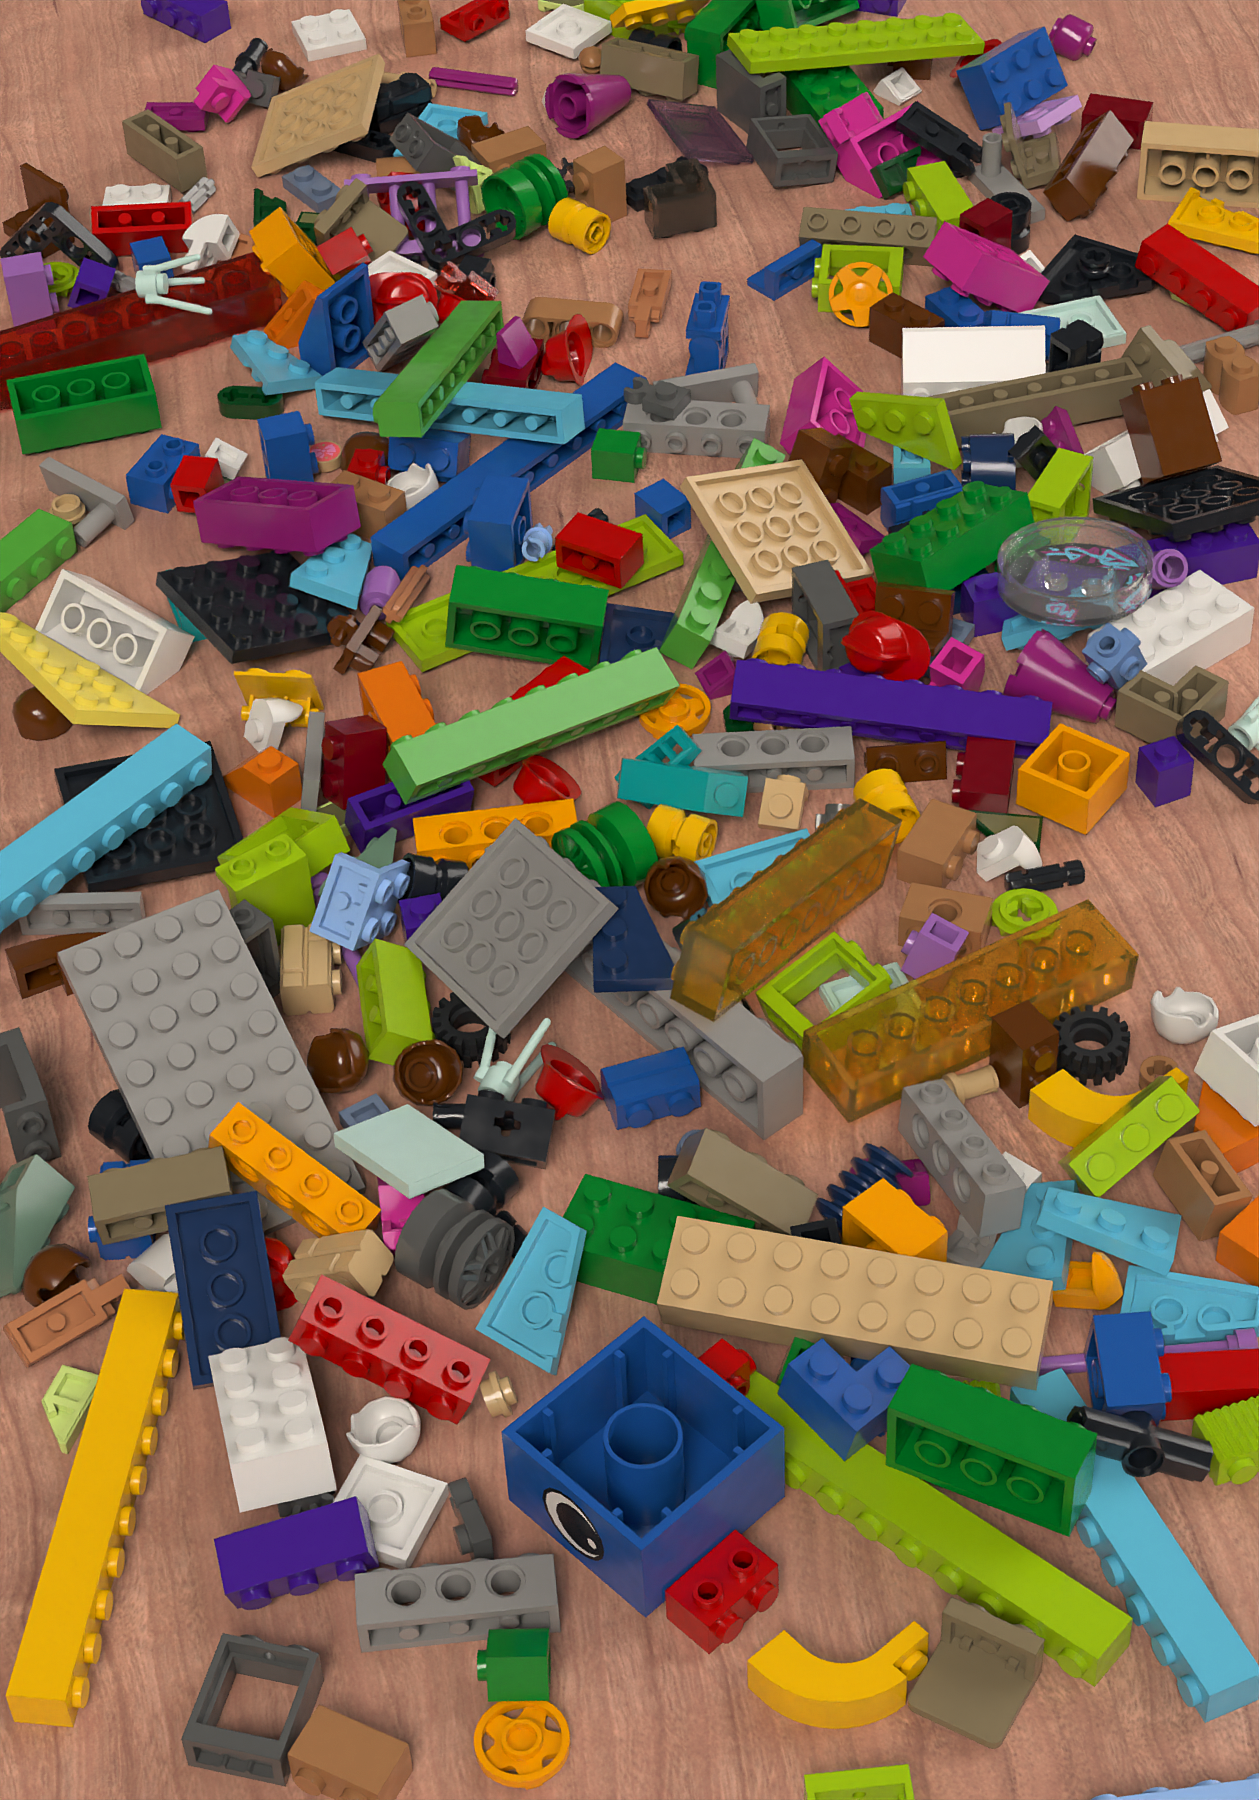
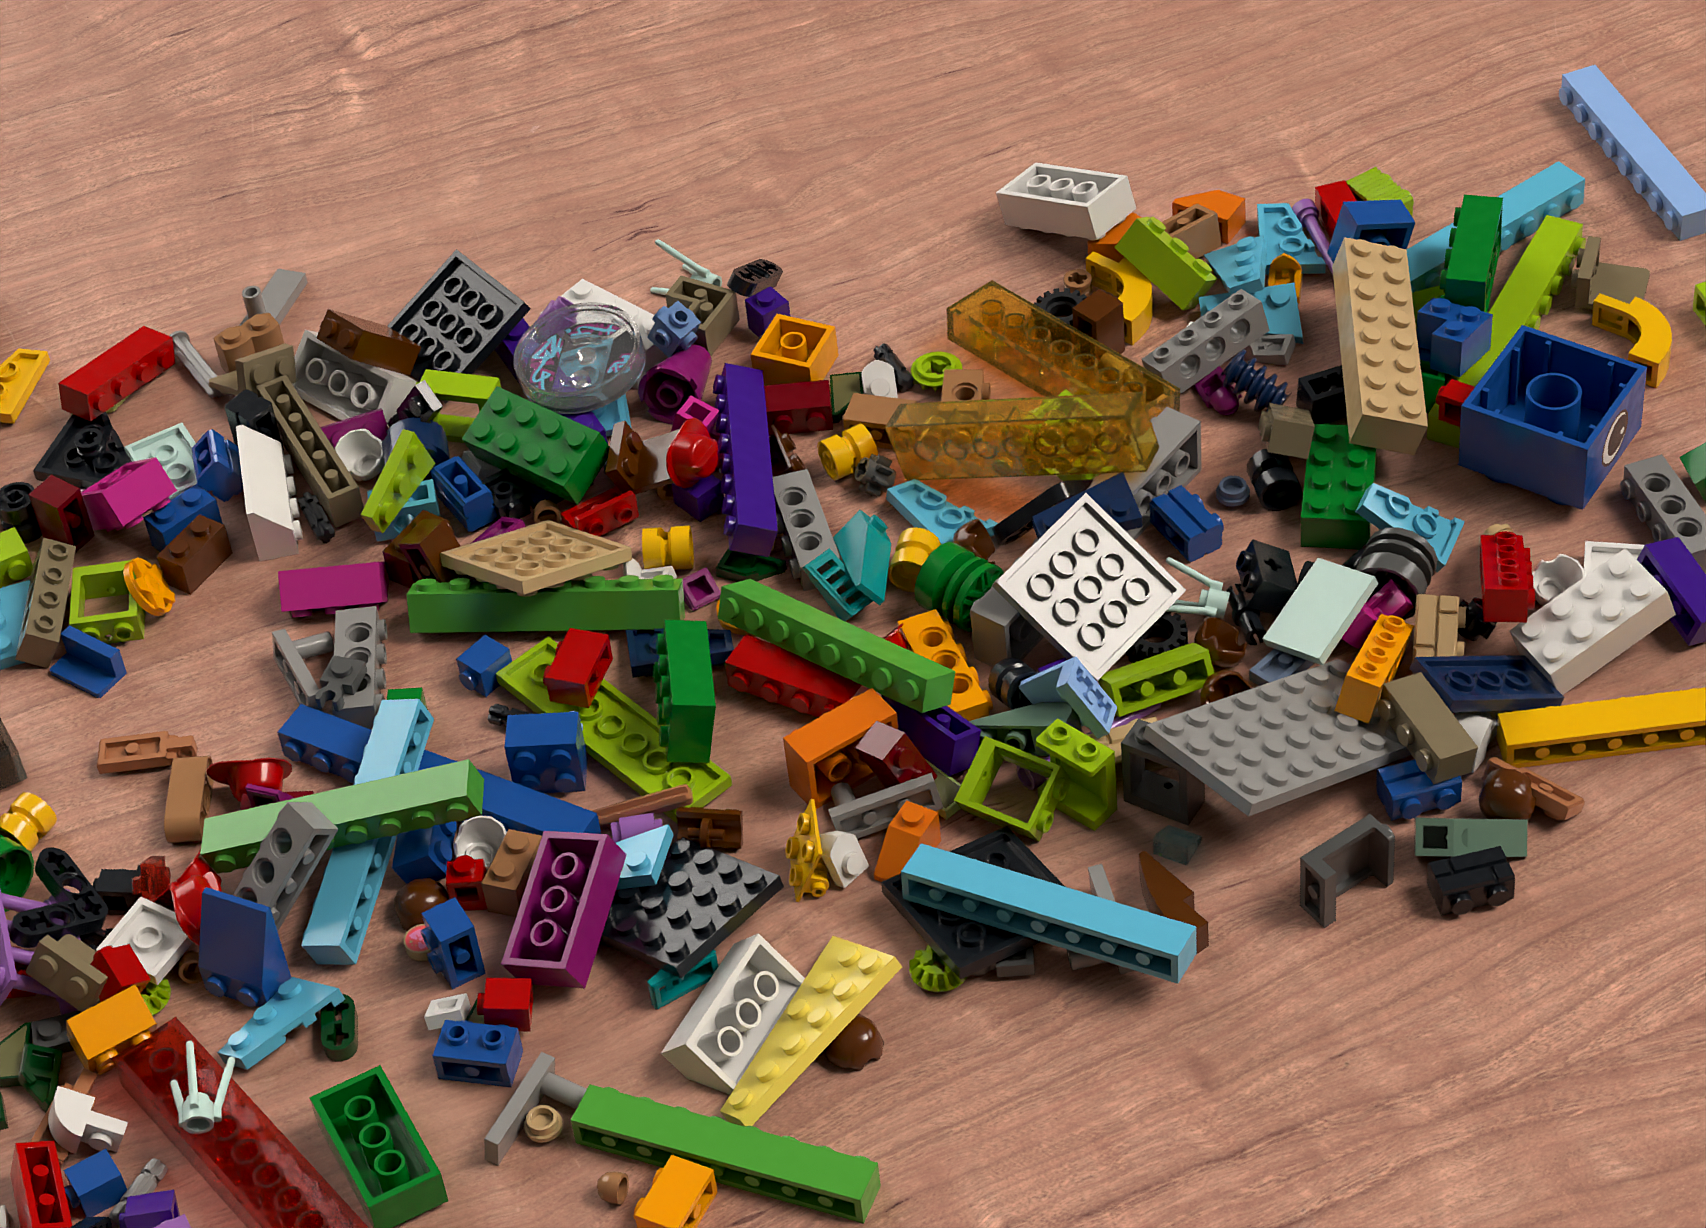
camera: 100 degrees left, 0 degrees up
(68, 1404) = (1604, 772): yellowish green tile -> none
(116, 1129) = (1341, 805): black wheel -> none
(291, 319) = (200, 1012): orange slope -> none
(472, 1533) = (1613, 522): dark grey plate -> none
(566, 1083) = (1210, 561): red piece -> none
(708, 329) = (236, 668): blue hips -> none
(783, 803) = (844, 509): tan bracket -> none
(824, 610) = (652, 487): dark grey window -> none
(891, 1223) = (1301, 350): light orange brick -> none
(932, 947) = (1003, 384): medium lavender brick -> none
(1144, 1446) = (1428, 223): black piece -> none
(1184, 1016) = (1022, 272): white hair -> none

